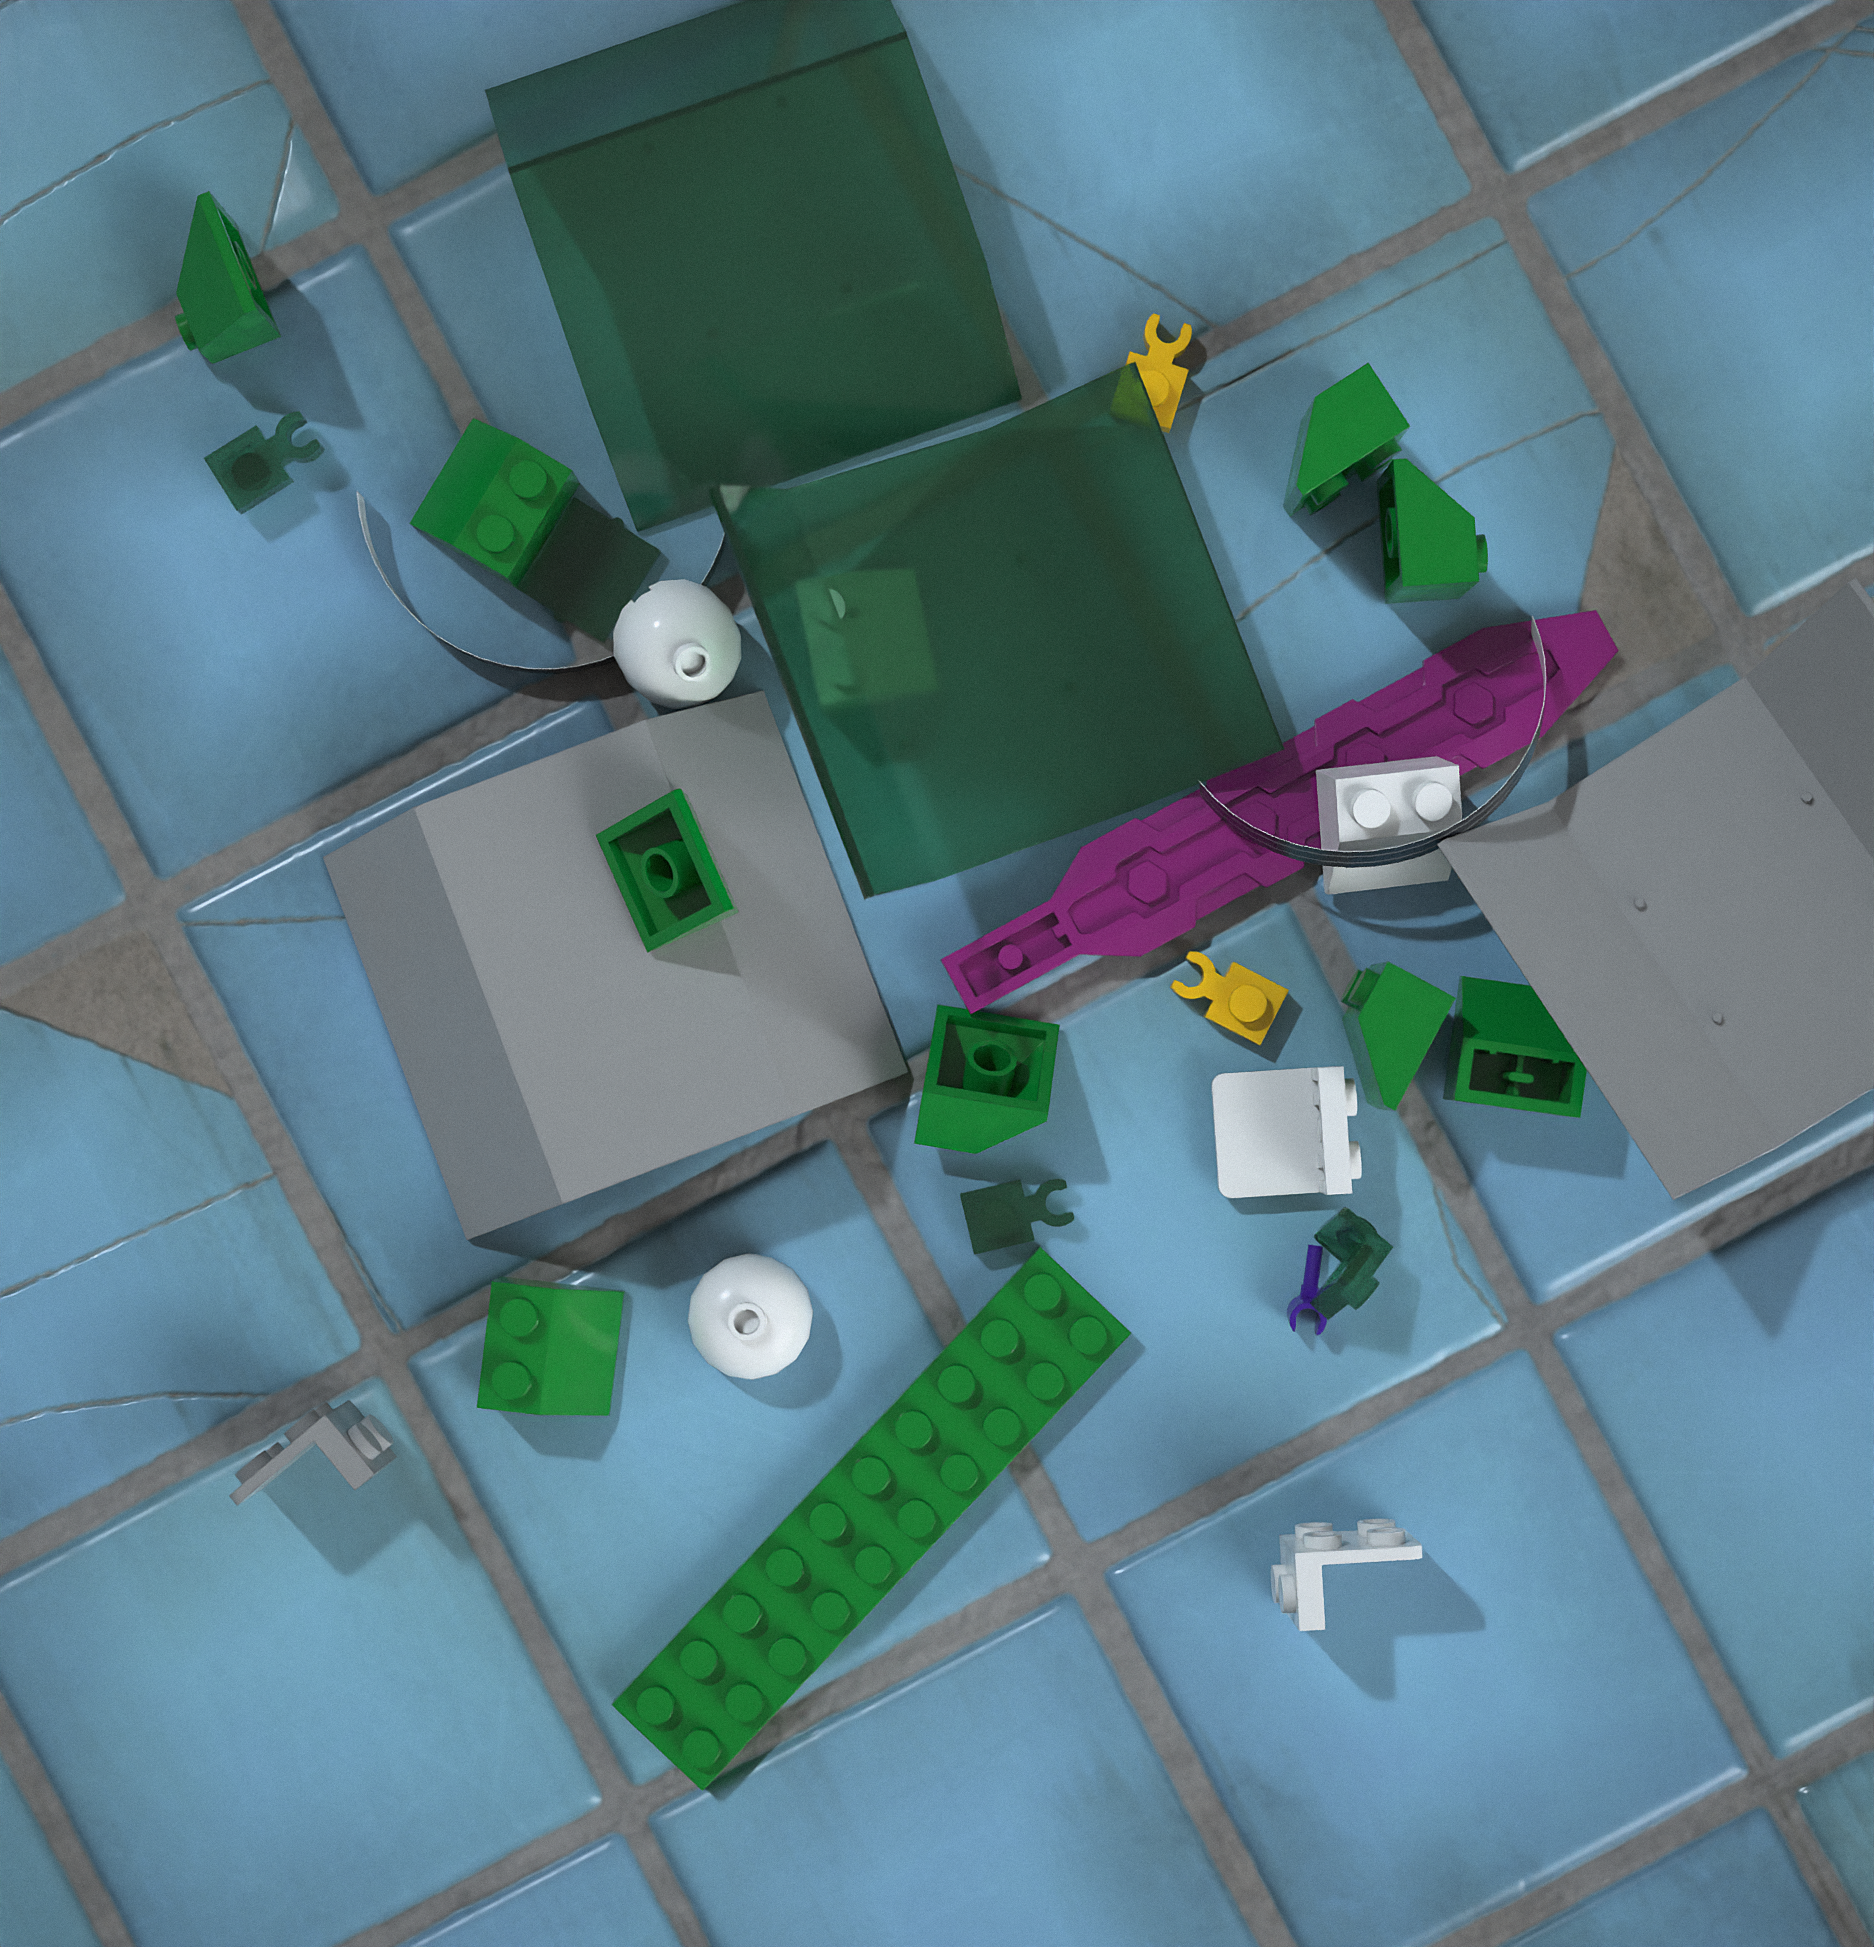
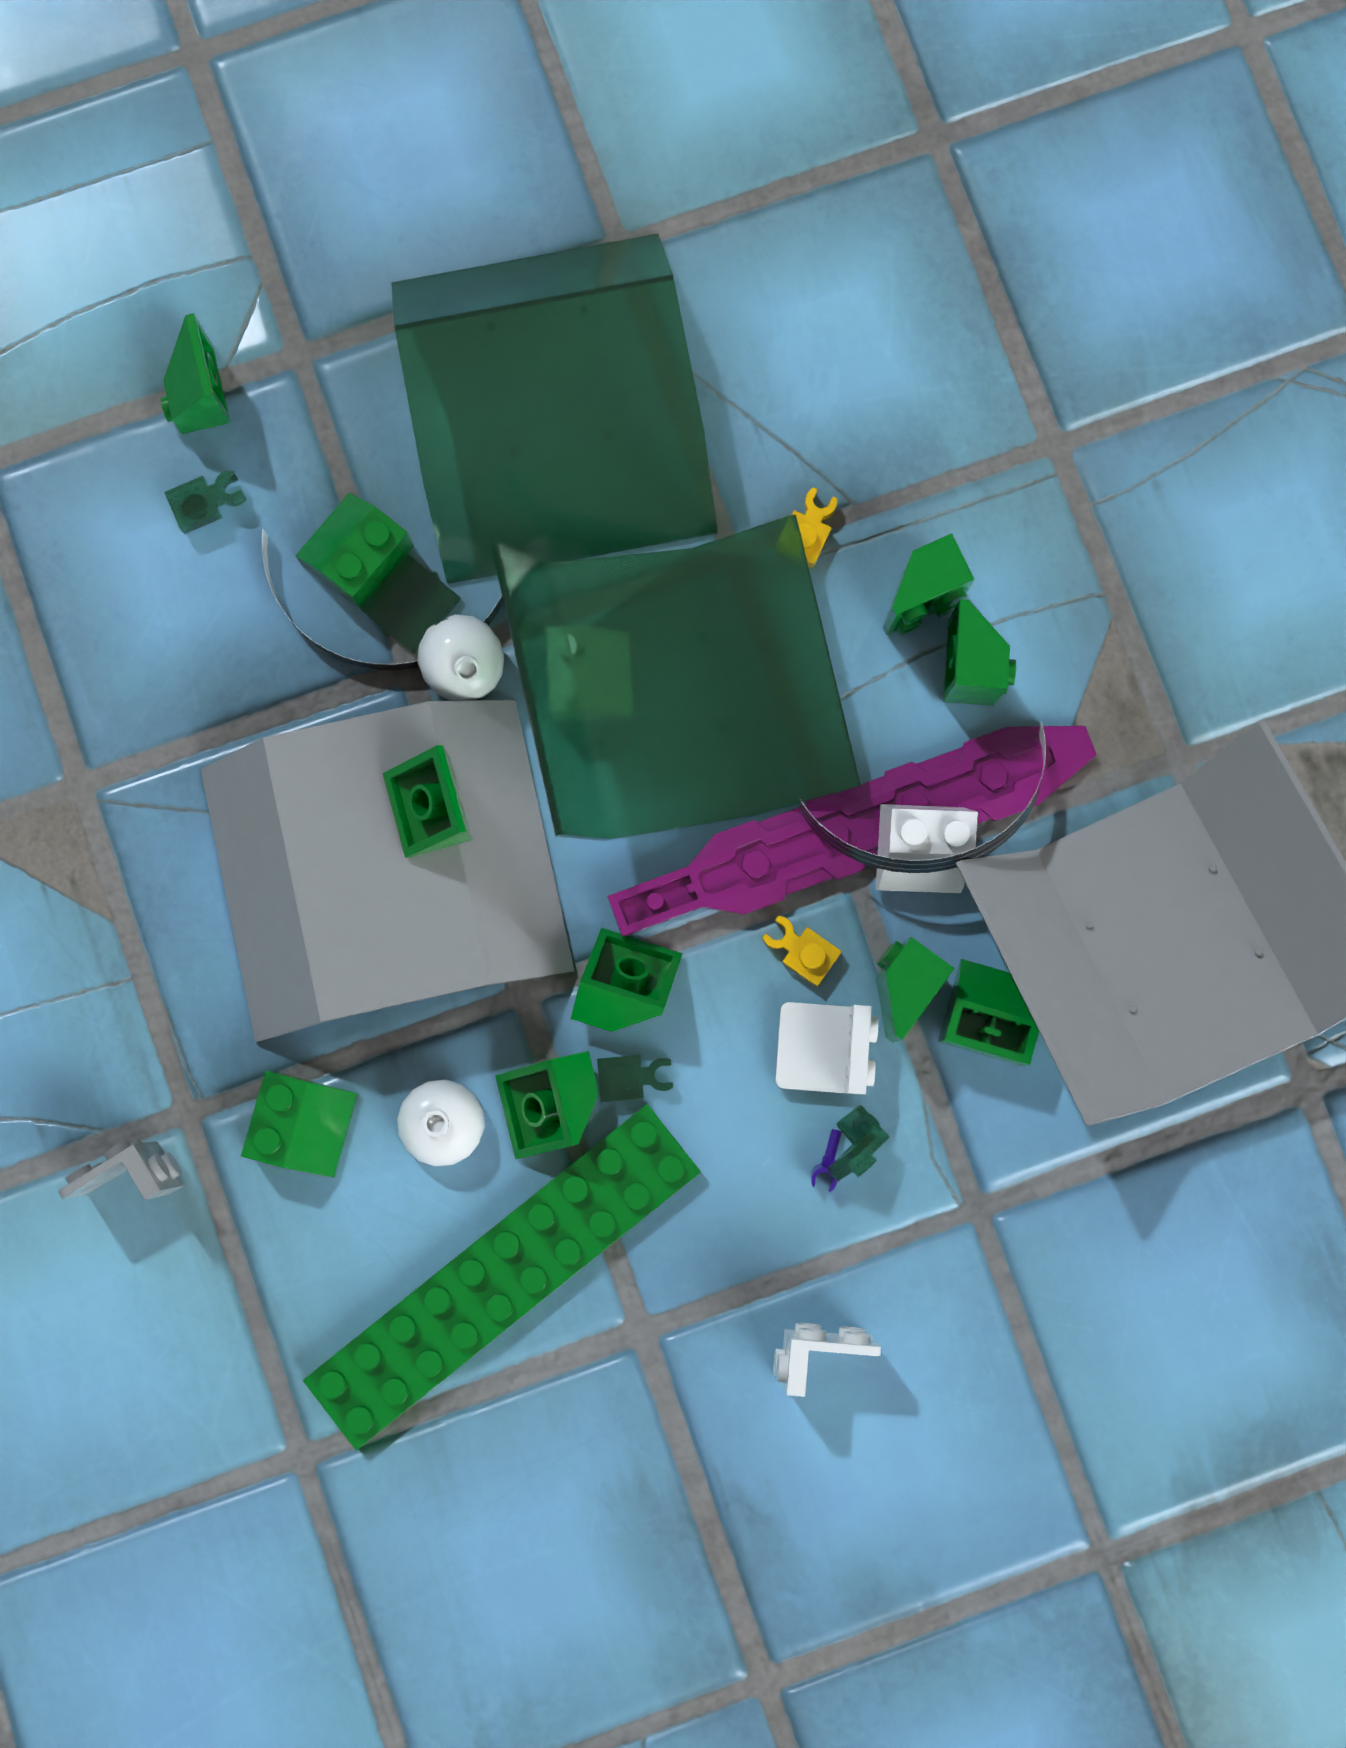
camera: 10 degrees right, 5 degrees down
(900, 1268) = (548, 1103): none -> green slope

